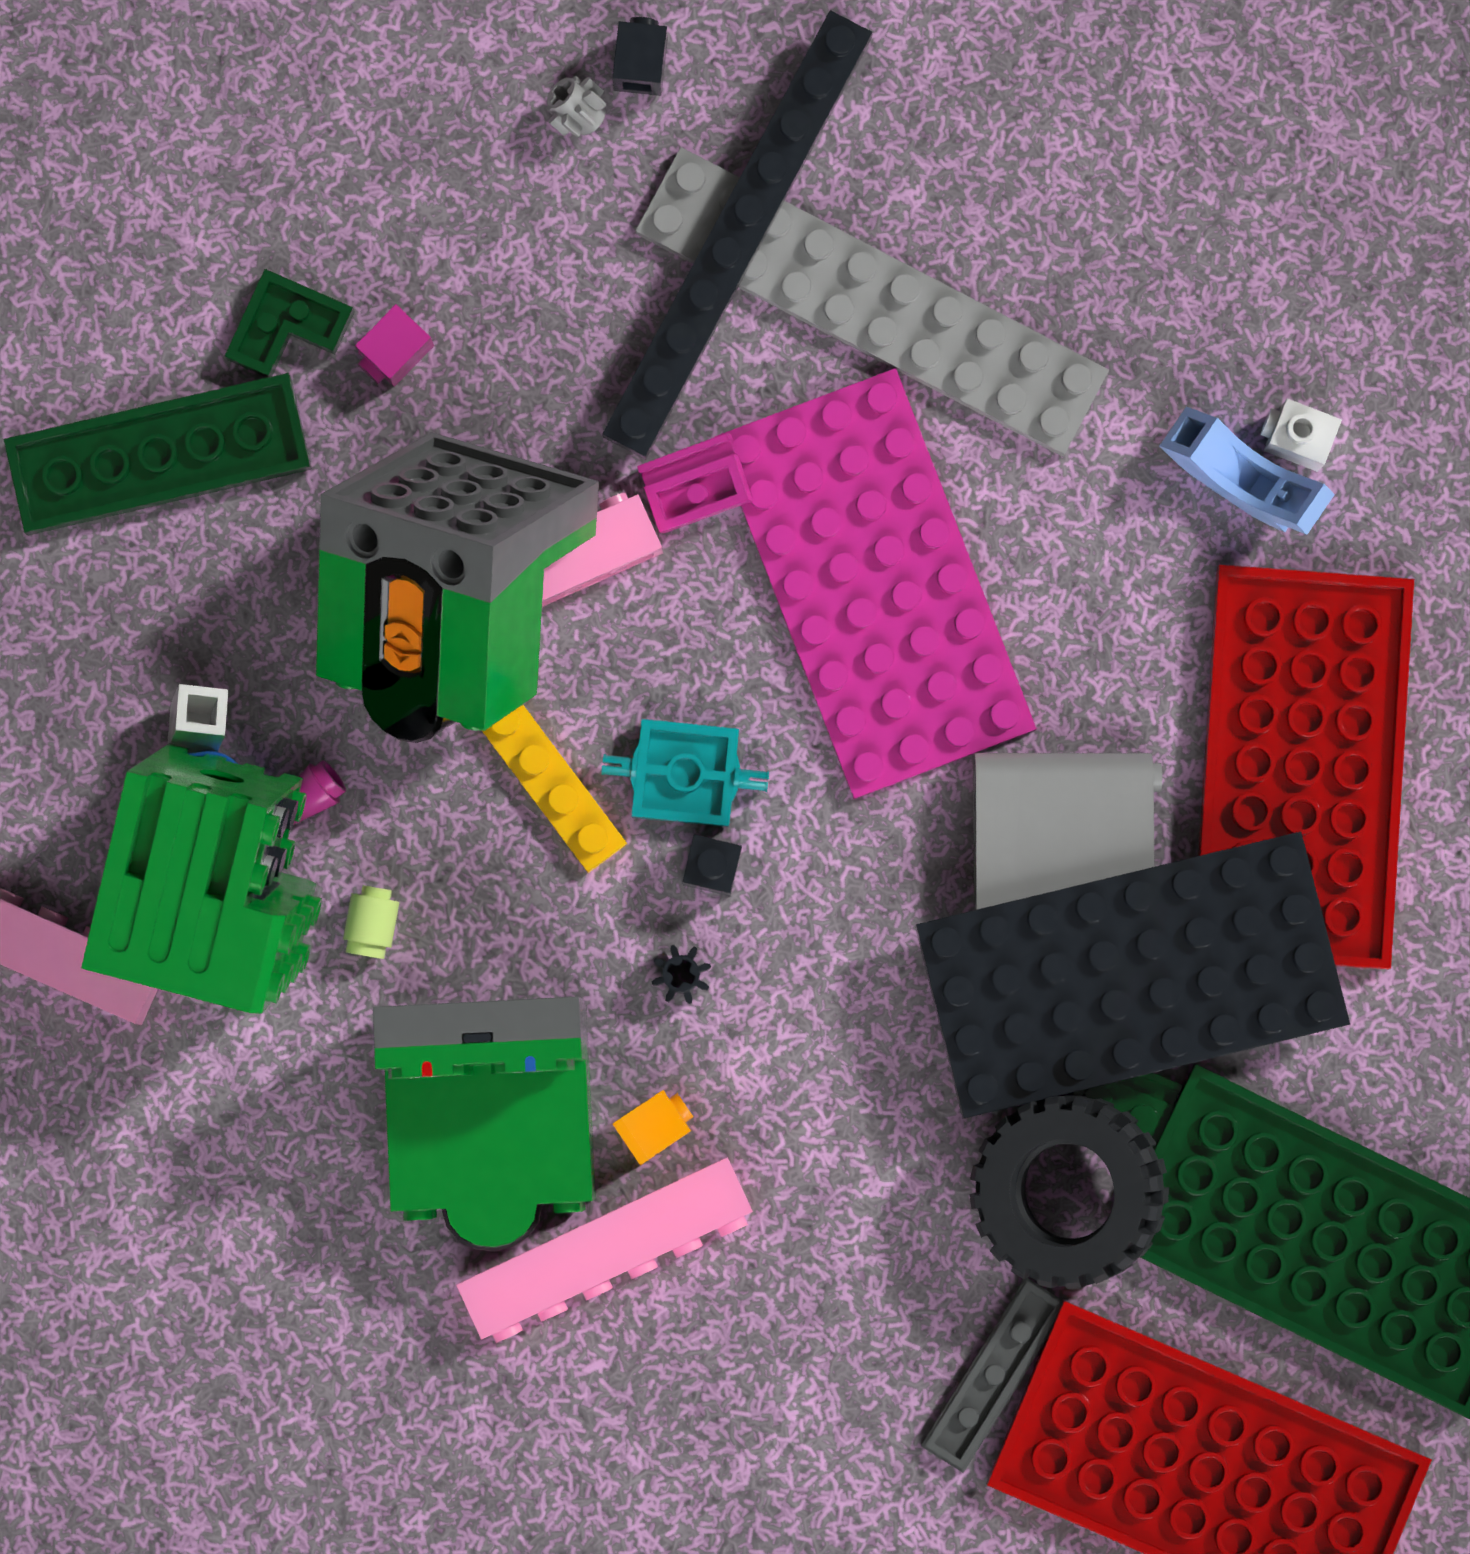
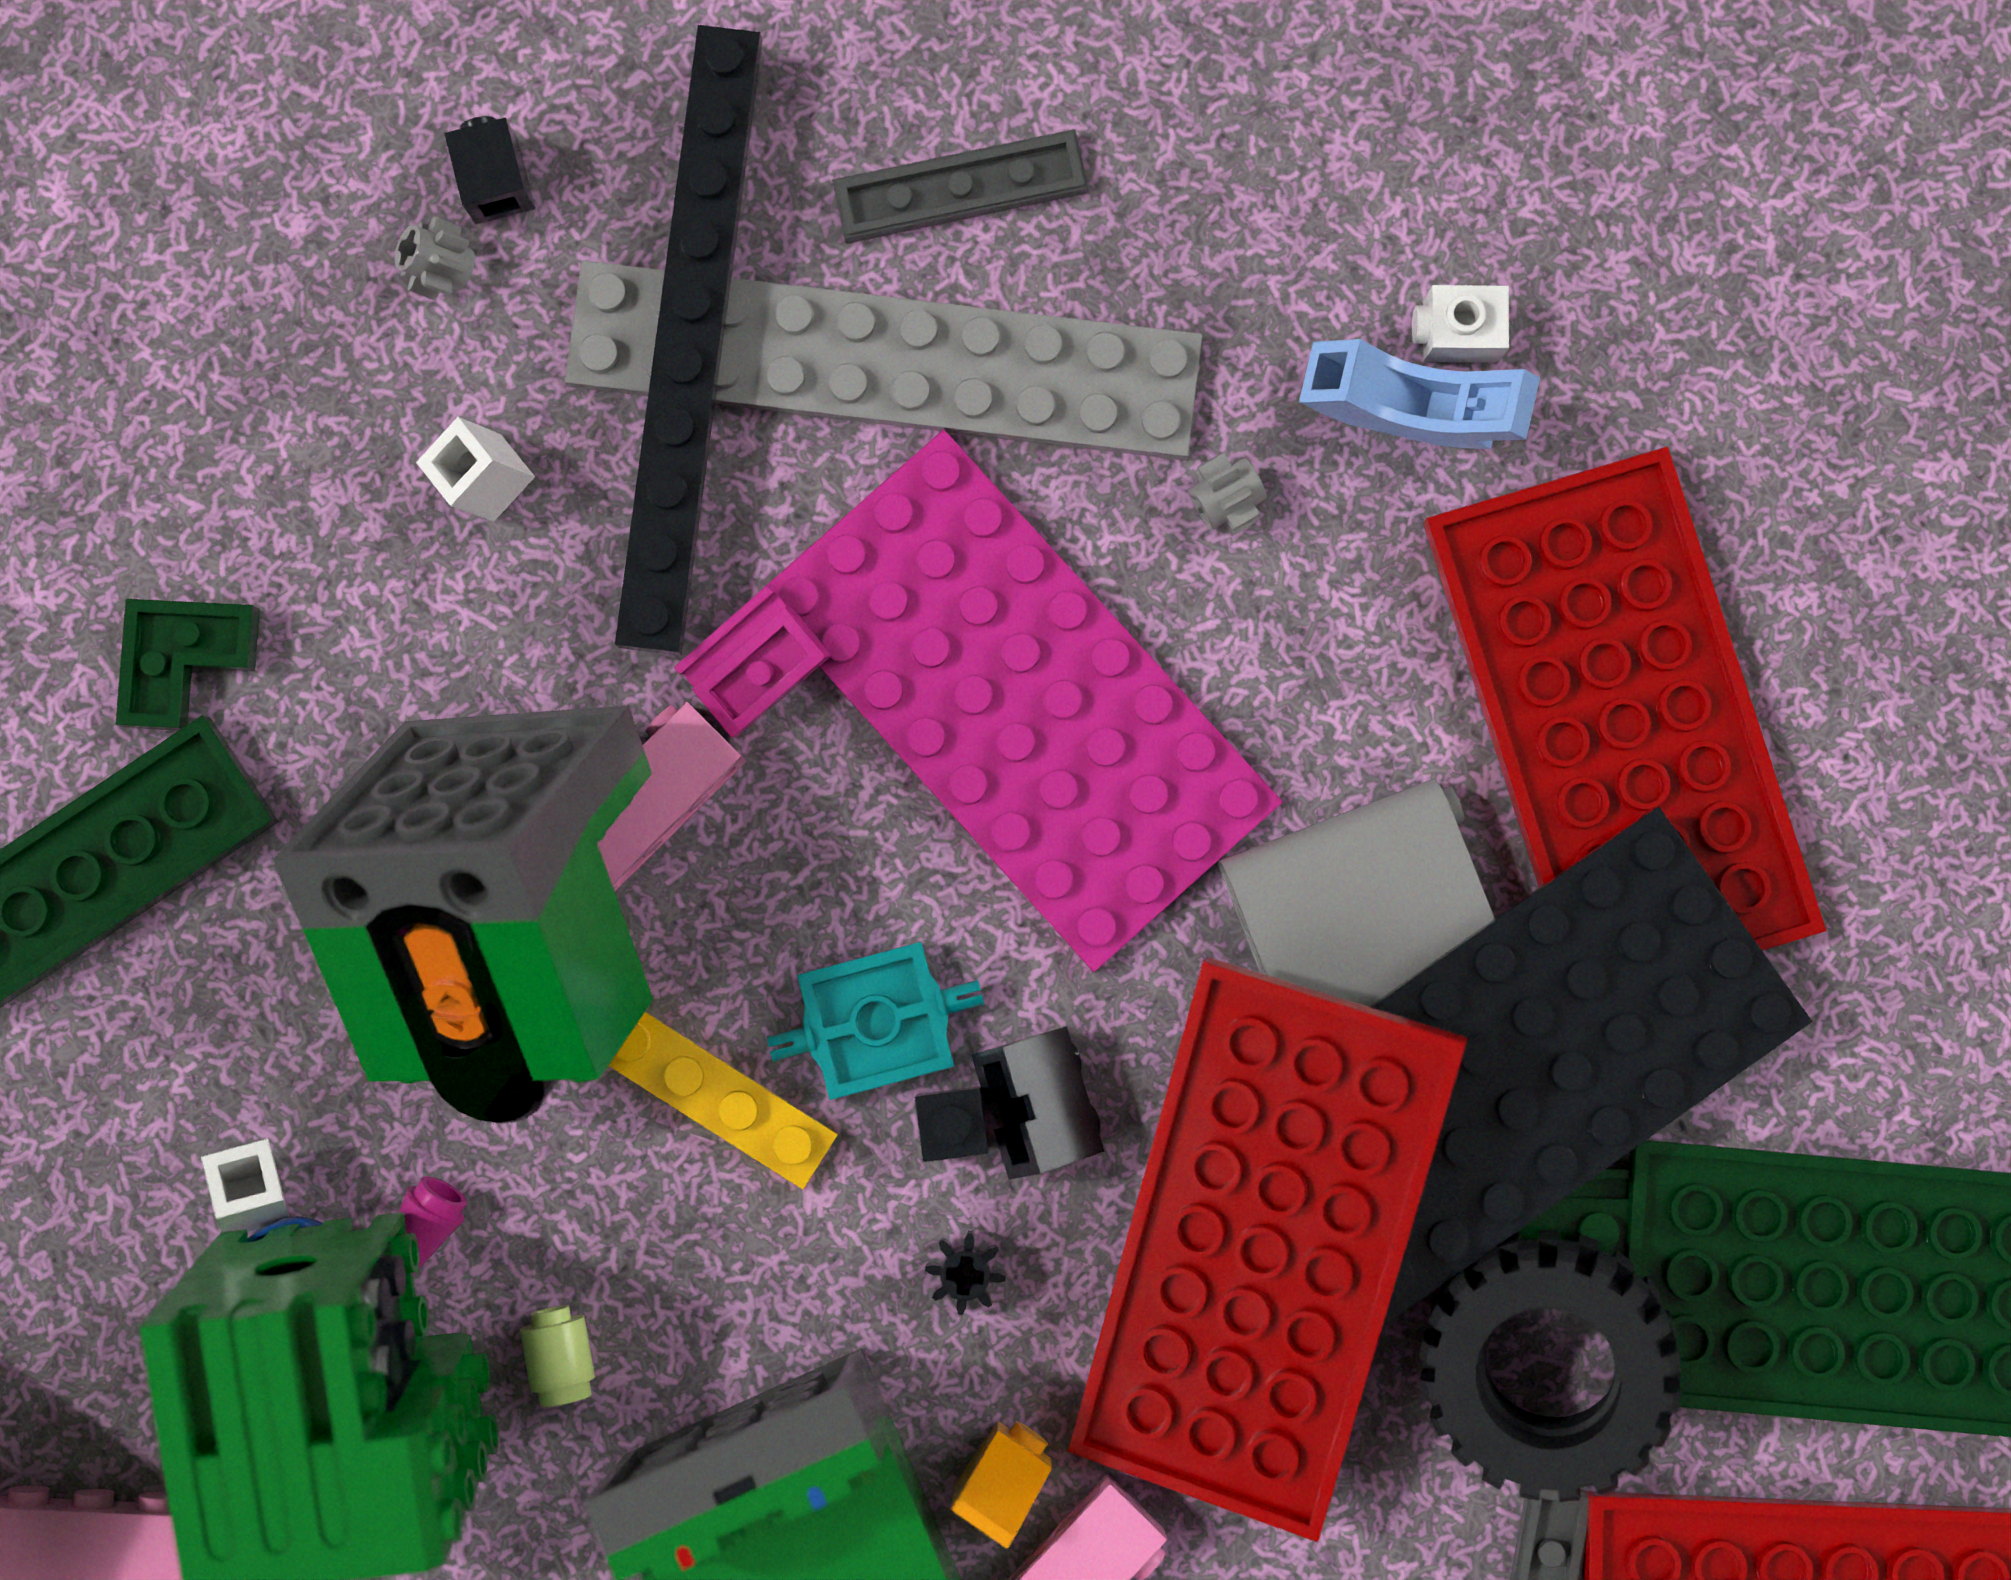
camera: 20 degrees left, 0 degrees up
(393, 347) = (320, 635): dark pink brick -> none
(549, 271) = (475, 469): none -> white brick
(780, 873) = (1040, 1103): none -> black brick
(899, 1030) = (1265, 1245): none -> red plate
(975, 195) = (960, 186): none -> dark grey tile
(1082, 492) = (1227, 494): none -> light grey gear

